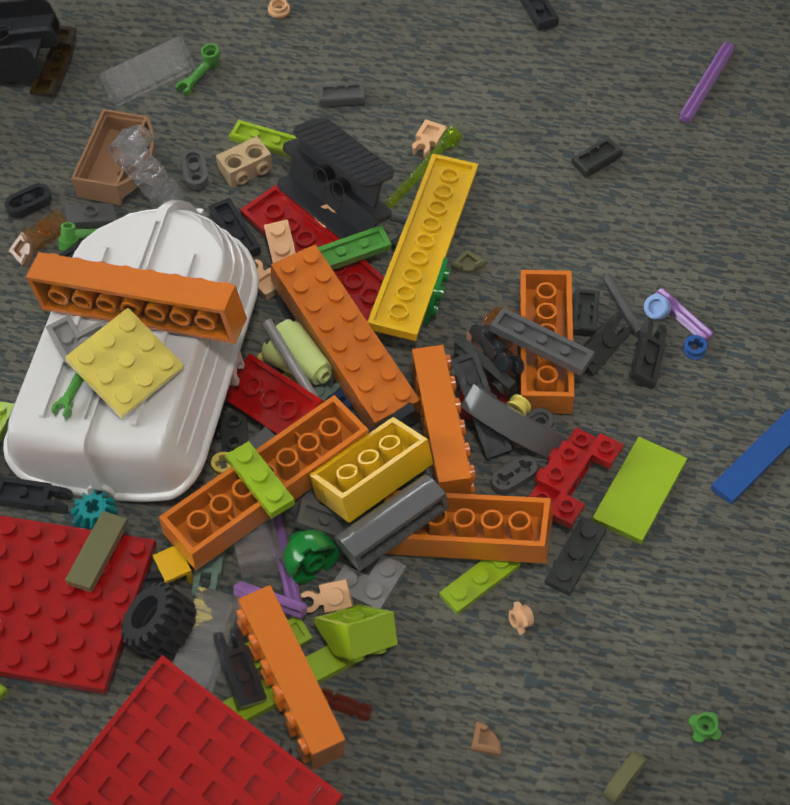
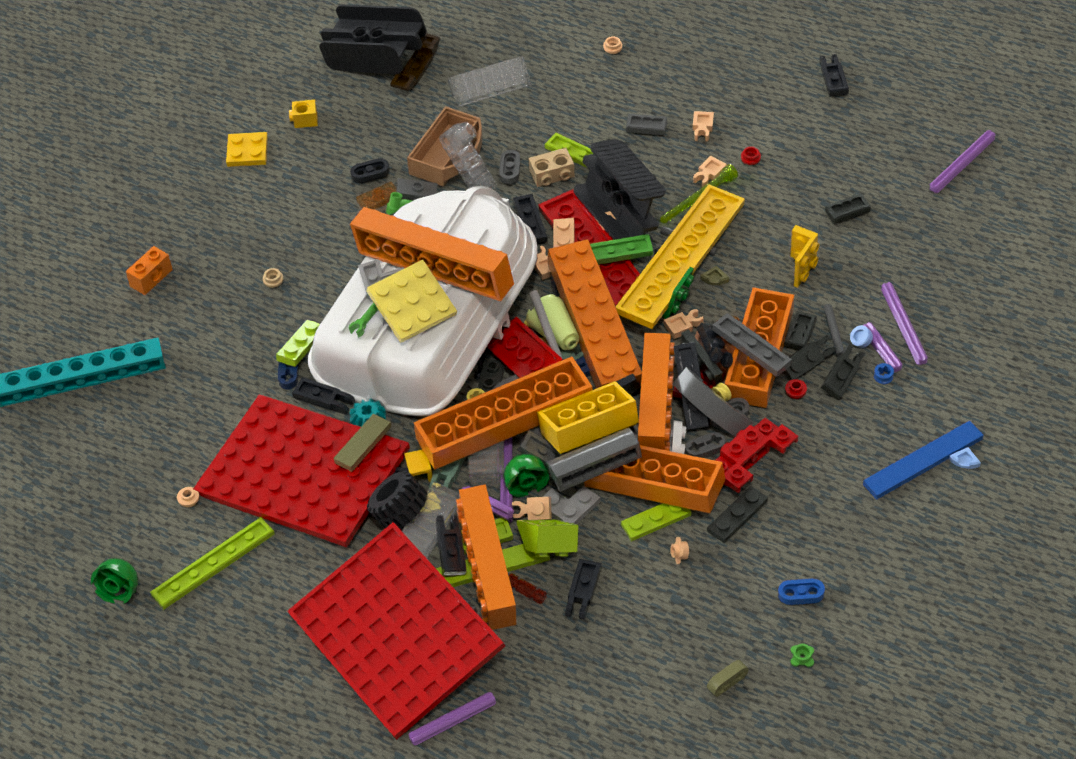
camera: 15 degrees right, 5 degrees down
(22, 249) = (356, 206): medium nougat tile -> none
(211, 56) = (545, 77): bright green brick -> none
(260, 479) = (497, 408): lime plate -> none
(406, 84) = (702, 124): none -> light nougat plate
(415, 688) = (583, 586): none -> black hinge
(446, 328) = (681, 323): none -> light nougat plate
(470, 112) = (750, 156): none -> red plate
(482, 484) = (677, 434): none -> white plate
(485, 741) = (627, 634): medium nougat tile -> none
(564, 213) = (804, 251): none -> yellow bracket
(600, 389) = (795, 393): none -> red plate
(639, 490) = (804, 474): lime tile -> none
(679, 642) = (800, 591): none -> blue plate
(700, 283) = (904, 323): none -> medium lavender axle

